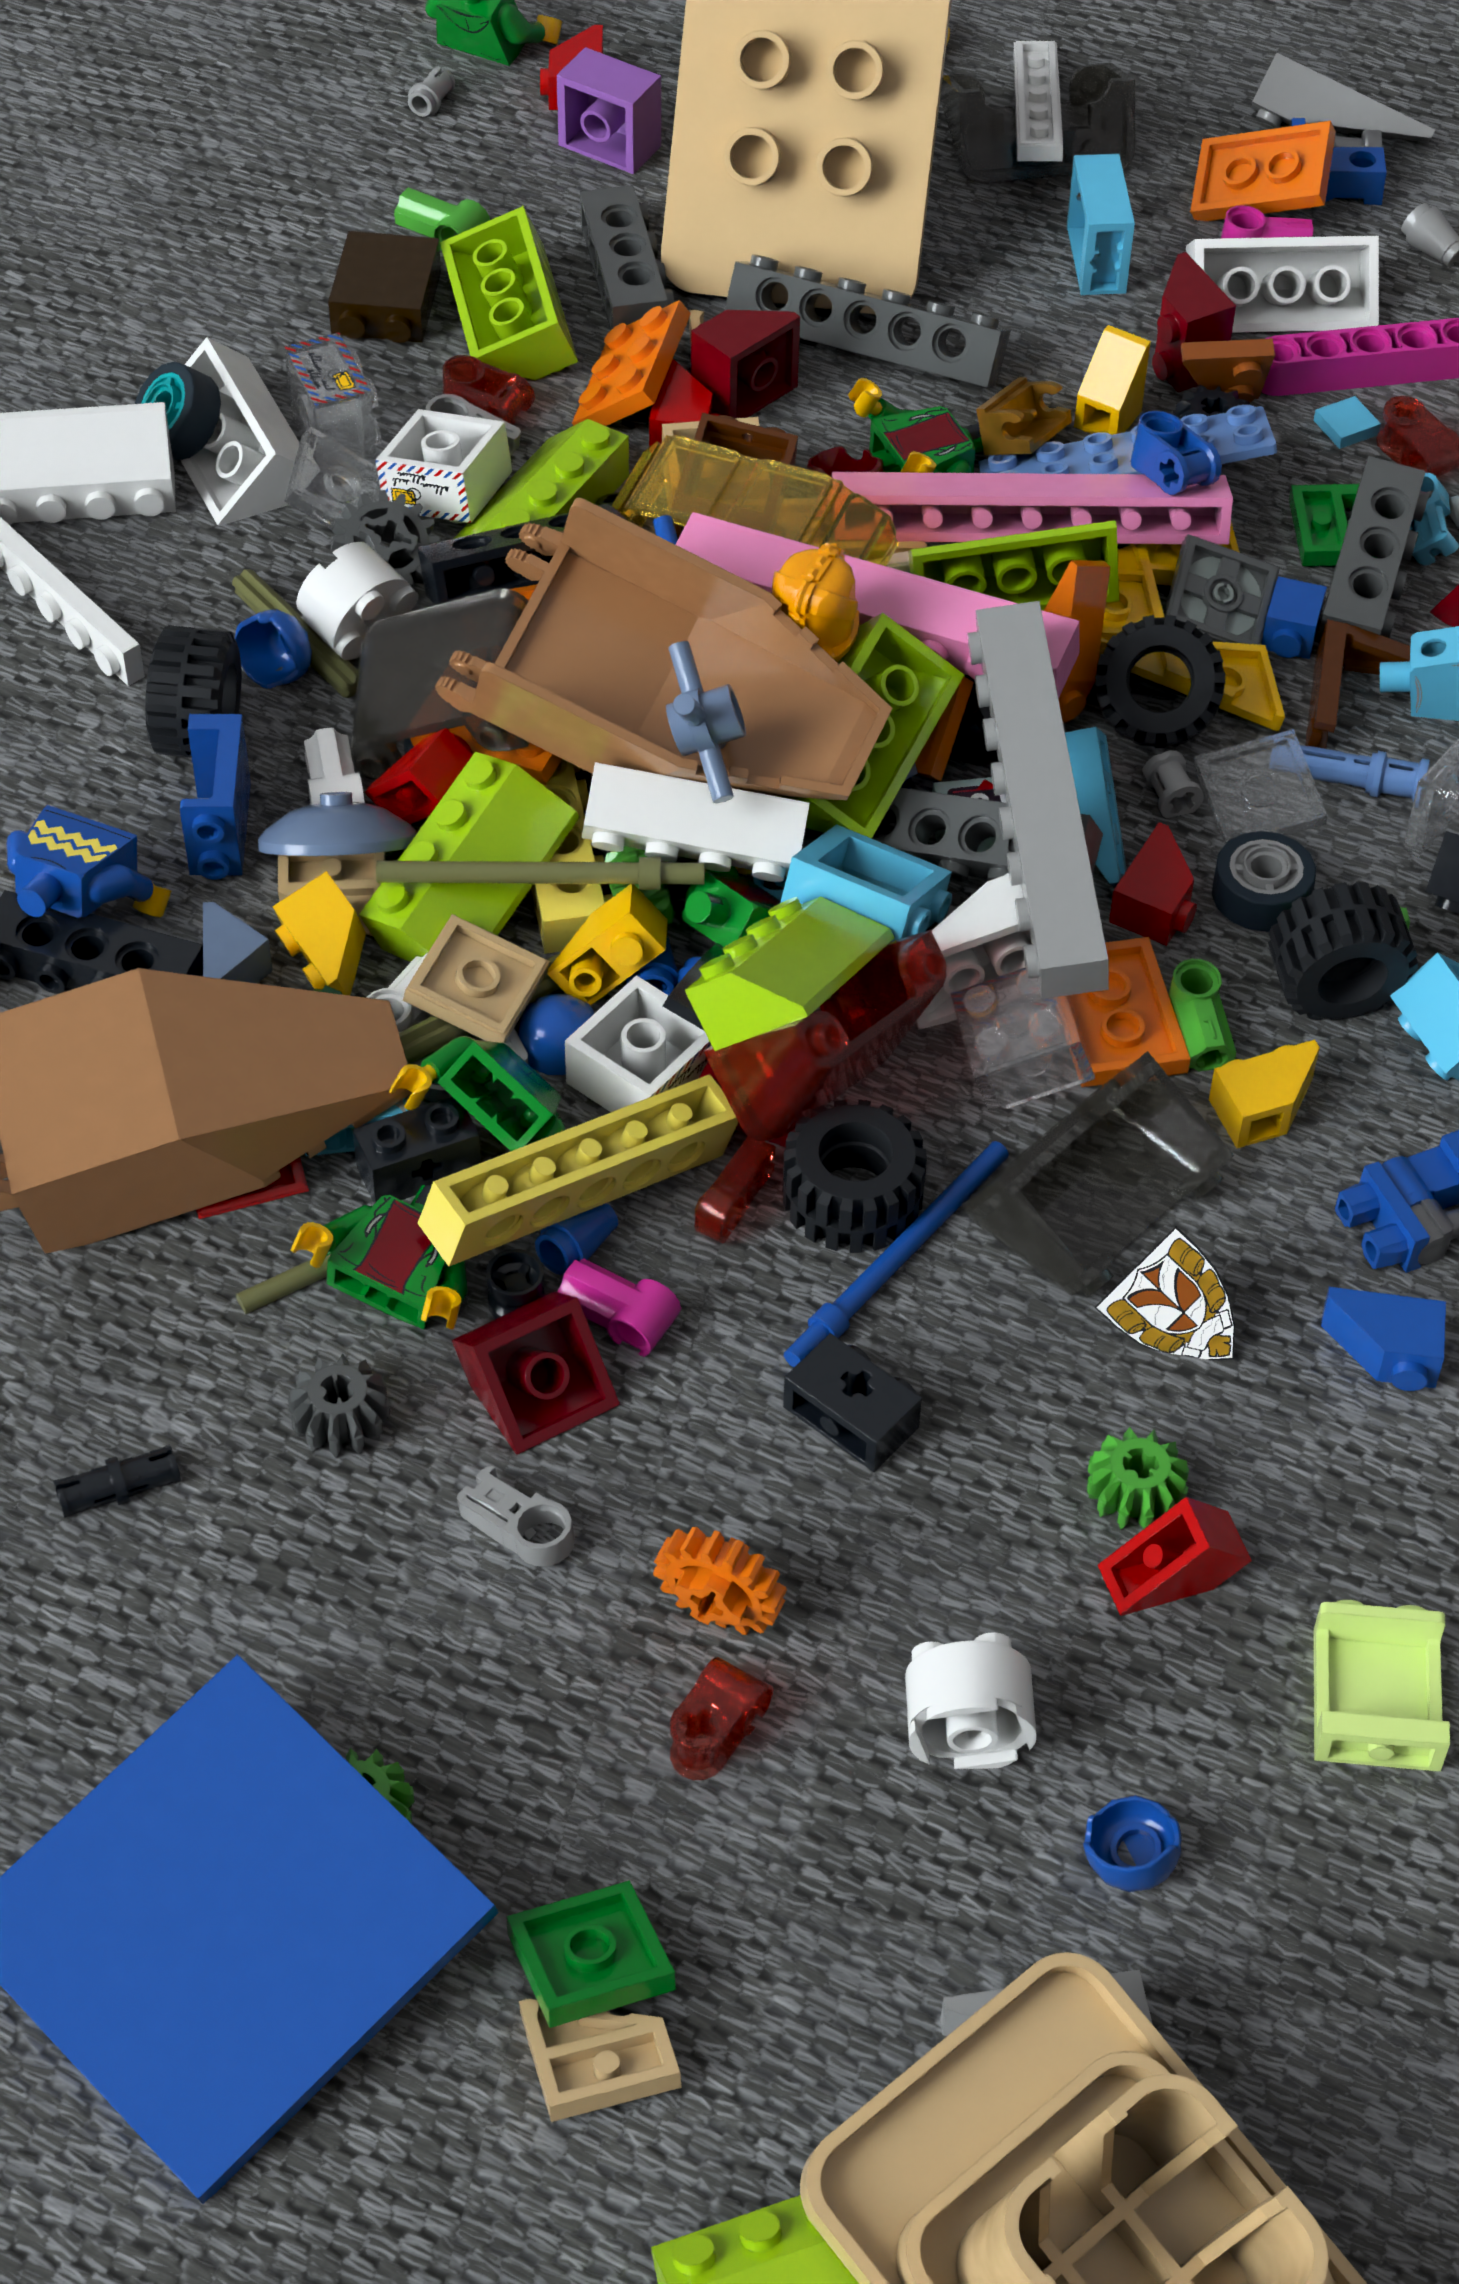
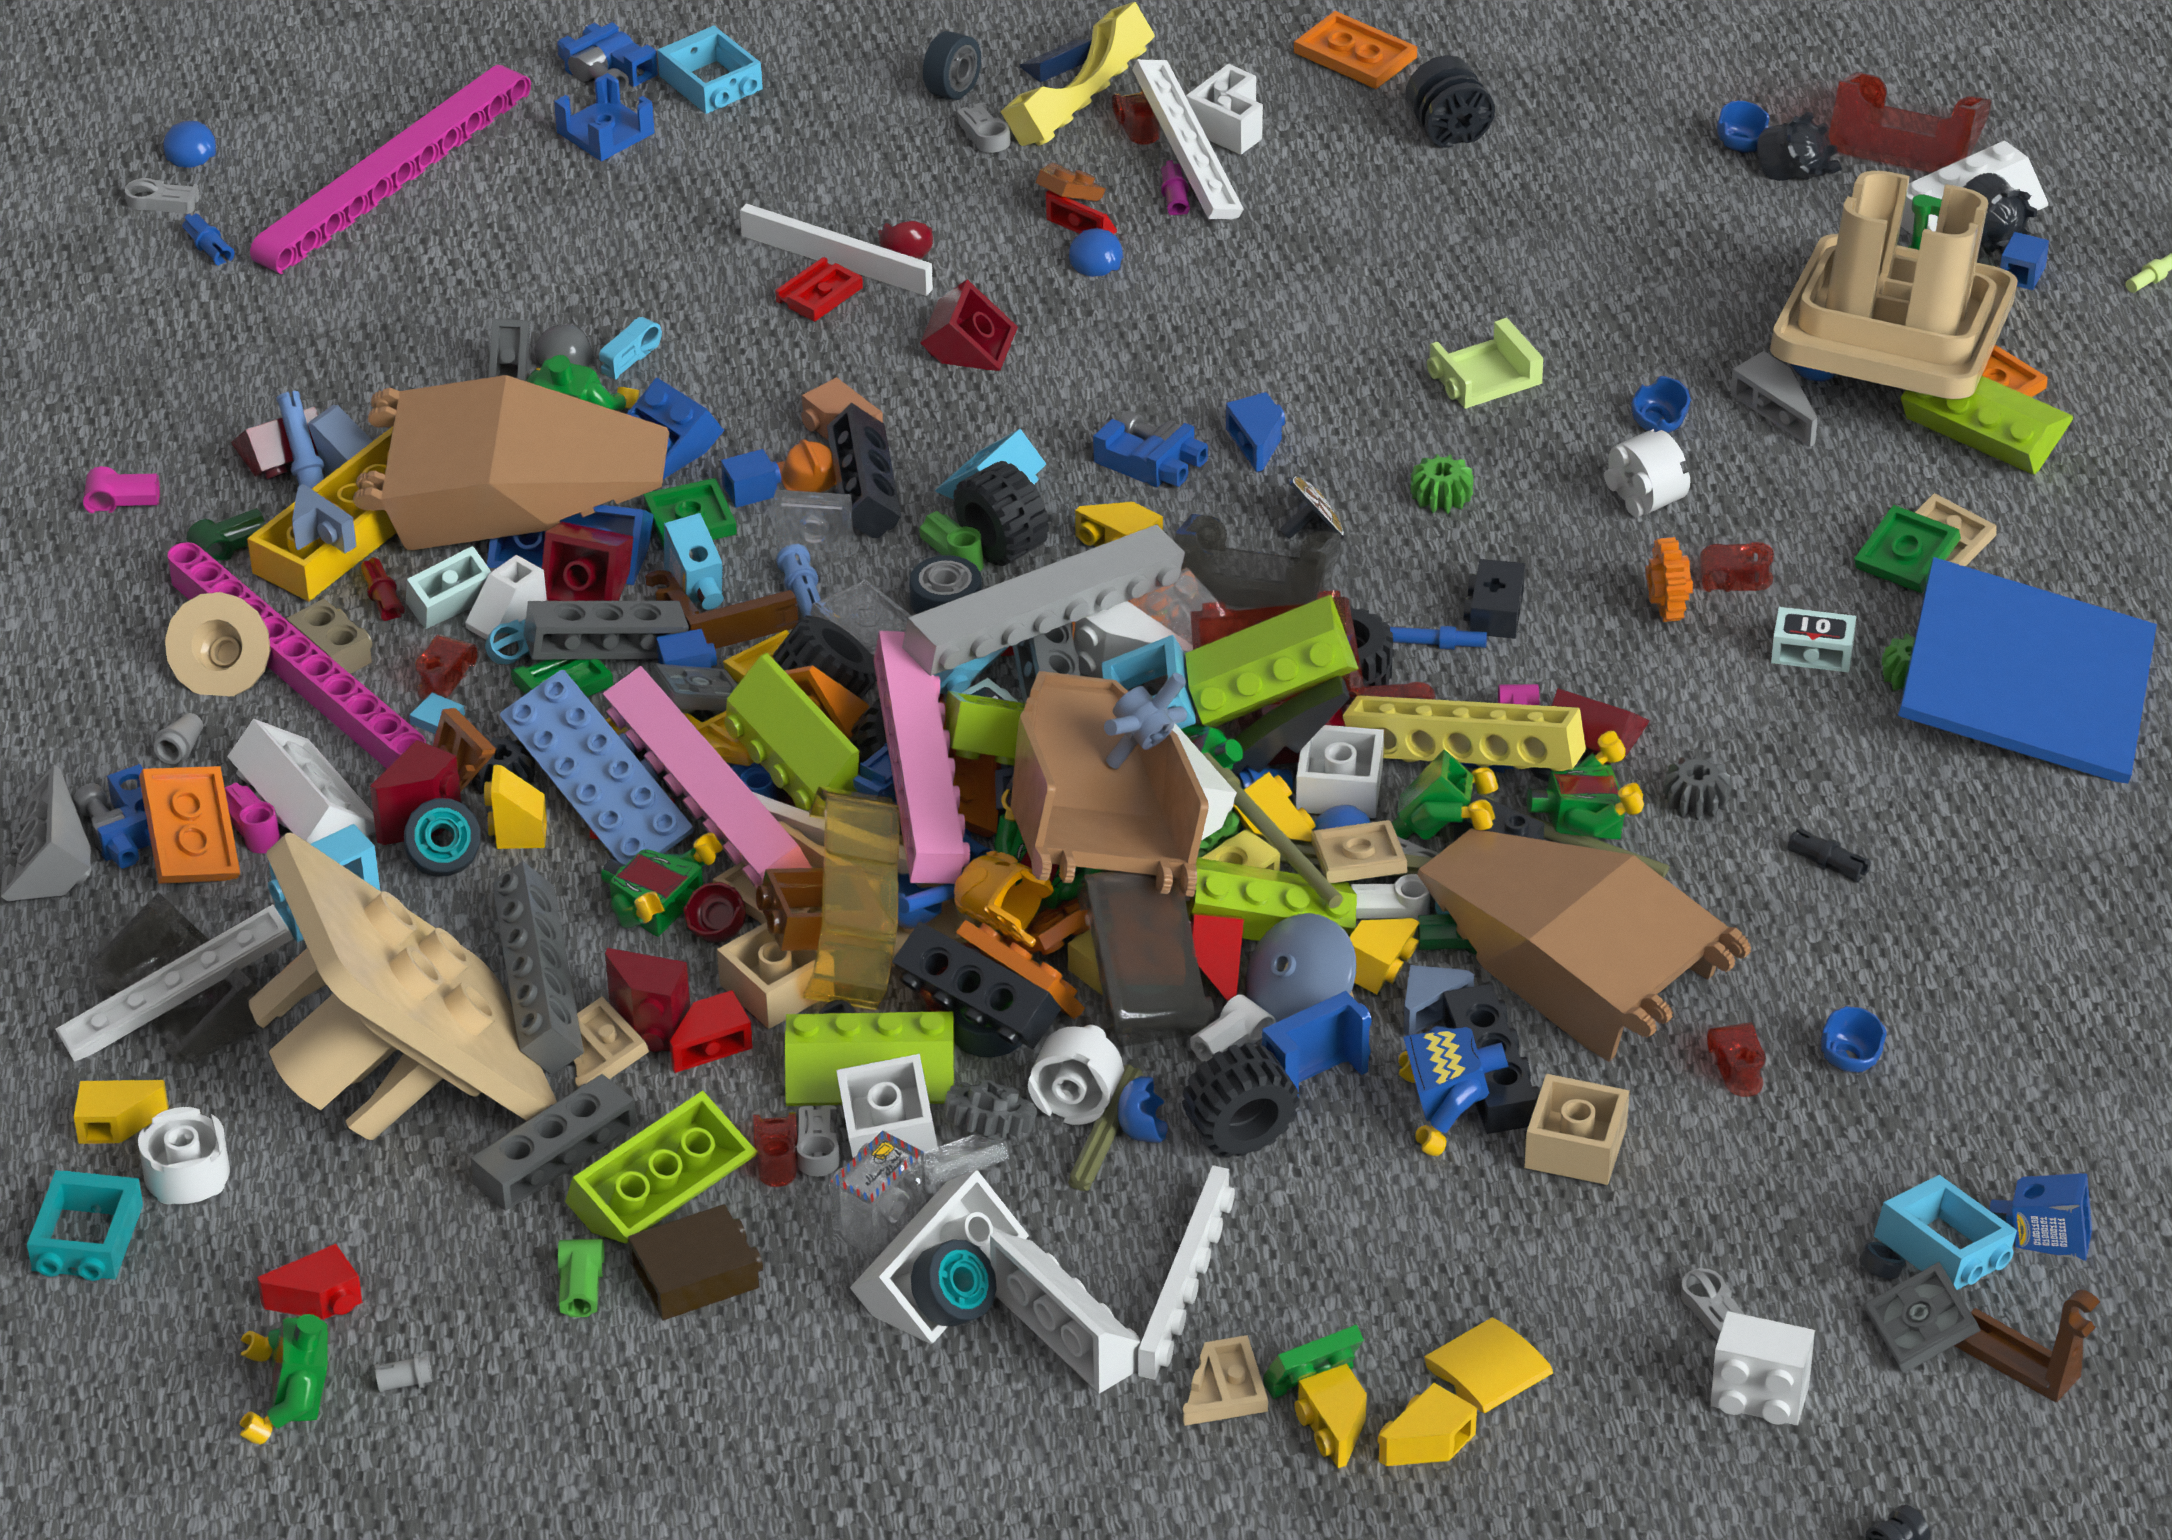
camera: 120 degrees left, 10 degrees down
(501, 1713) = (1813, 639): none -> light aqua brick
(510, 1515) = (1693, 696): light grey piece -> none
(609, 110) = (379, 1214): medium lavender brick -> none
(632, 365) = (683, 1060): orange plate -> none
(820, 594) = (990, 720): light orange helmet -> none
(1019, 419) = (586, 846): pearl gold hinge -> none
(1122, 308) = (447, 815): none -> wheel
(1173, 453) = (628, 699): blue piece -> none
(1175, 1557) = (1482, 449): red slope -> none

